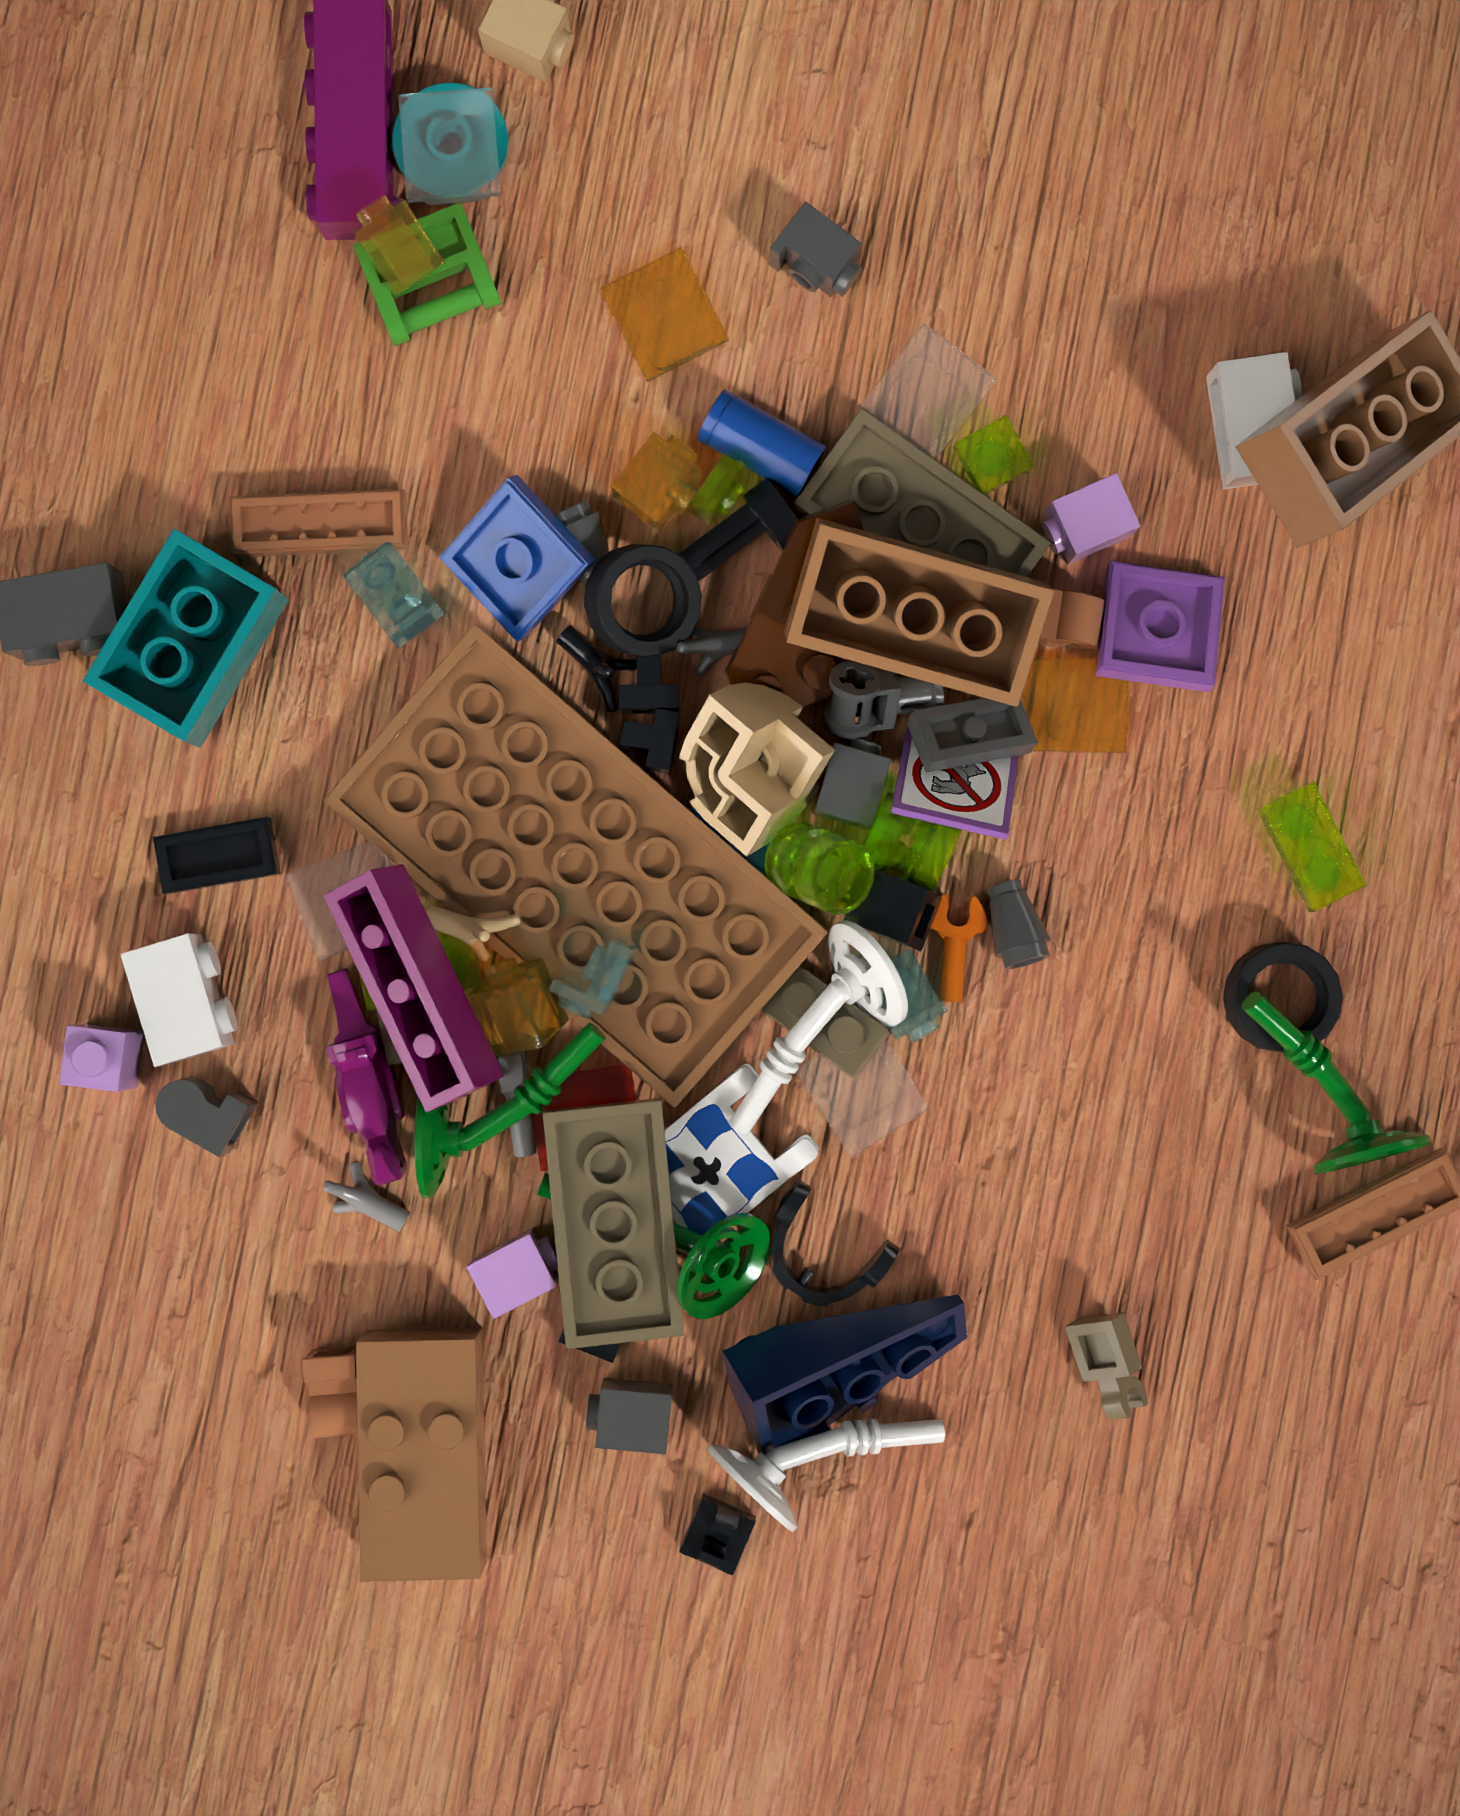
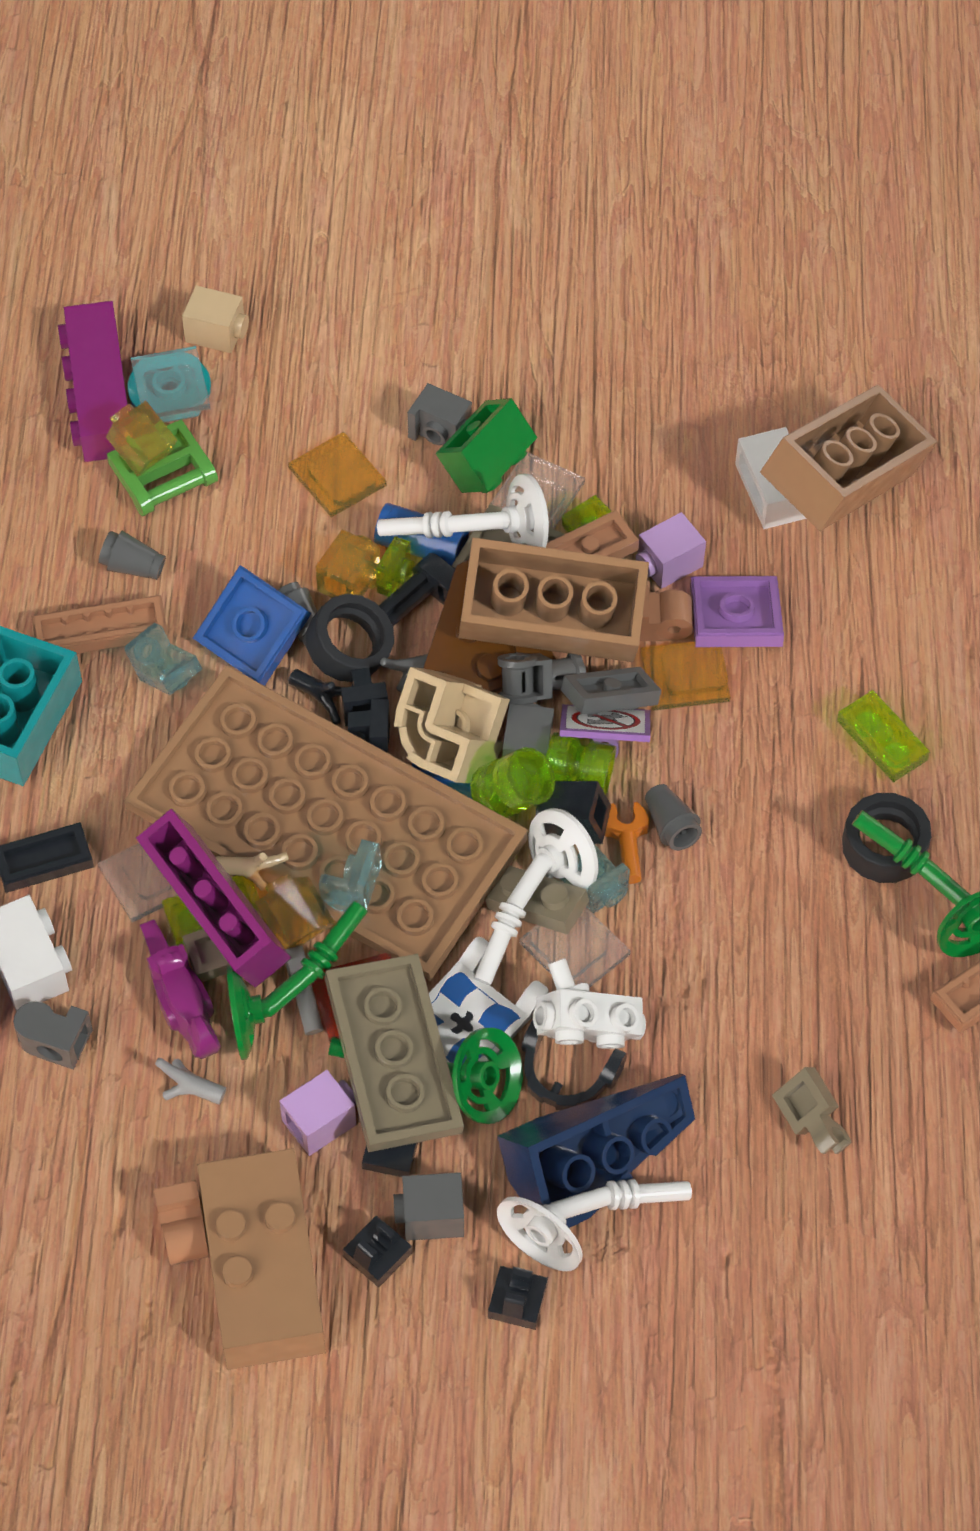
camera: 10 degrees left, 30 degrees down
(370, 416) = (130, 556): none -> dark grey cone
(562, 1451) = (377, 1251): none -> black tile
(856, 1209) = (580, 1015): none -> white brick
(871, 315) = (486, 446): none -> green brick
(885, 469) = (528, 514): none -> white dish
(984, 511) = (603, 537): none -> nougat plate

